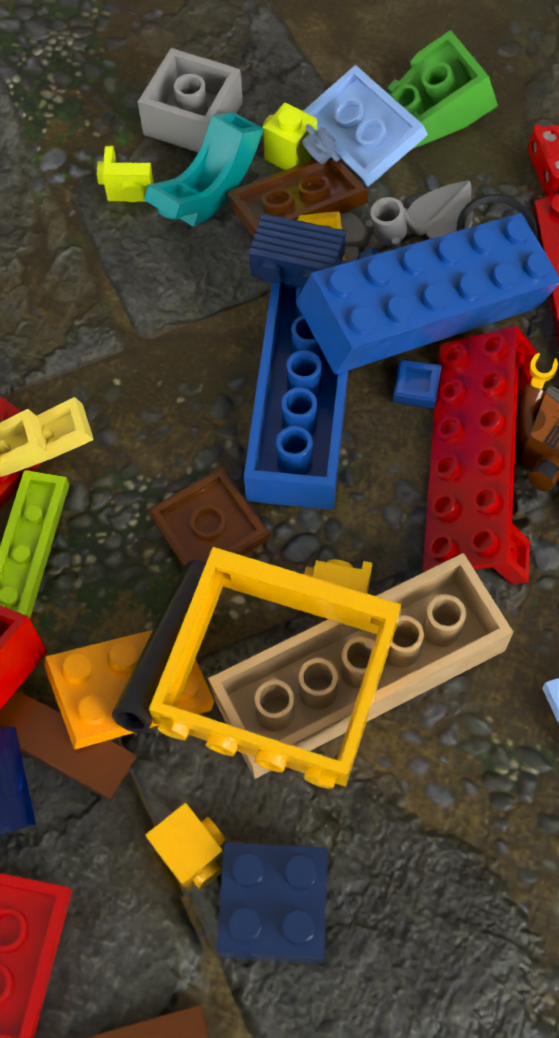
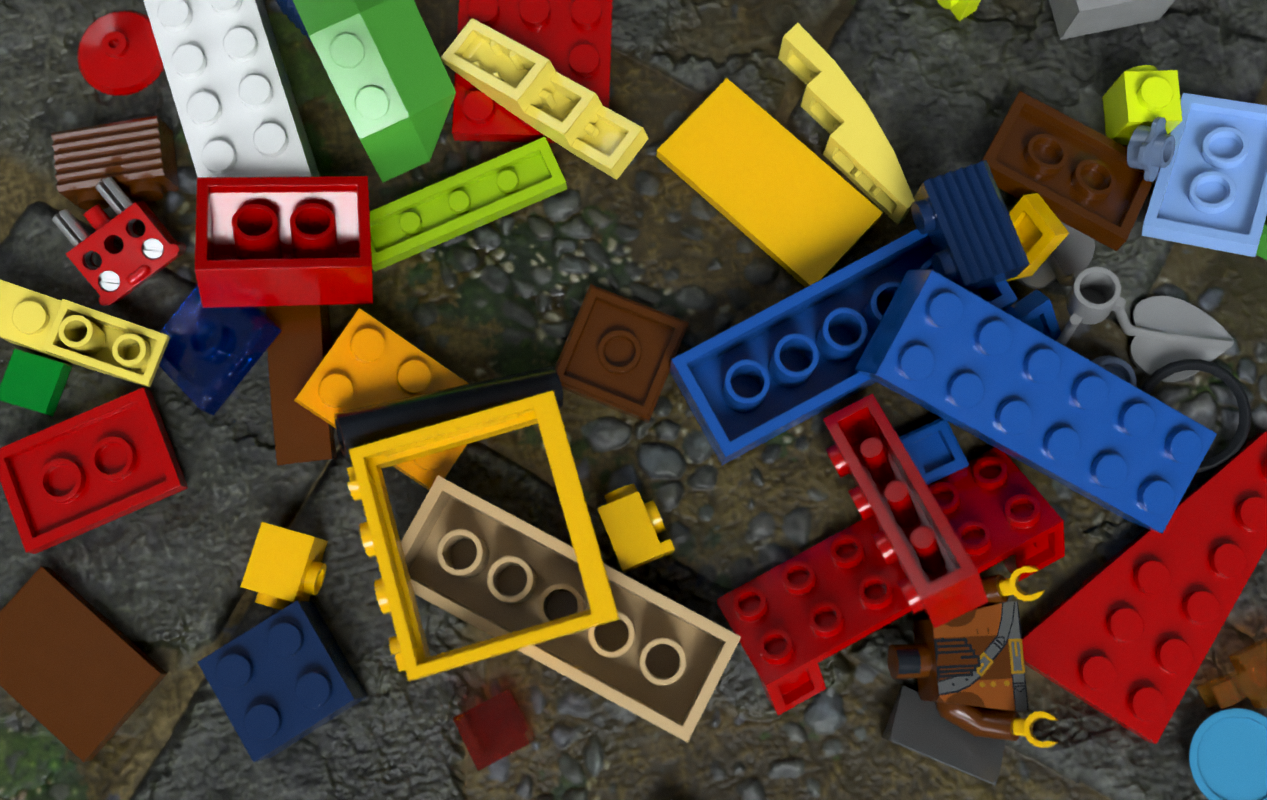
camera: 55 degrees right, 15 degrees up
(156, 291) = (856, 139): none -> light yellow slope
(168, 364) = (768, 184): none -> yellow tile
(215, 171) = (1030, 60): teal arch -> none
(415, 773) = (494, 729): none -> clear red panel
(448, 402) = (910, 520): none -> red brick

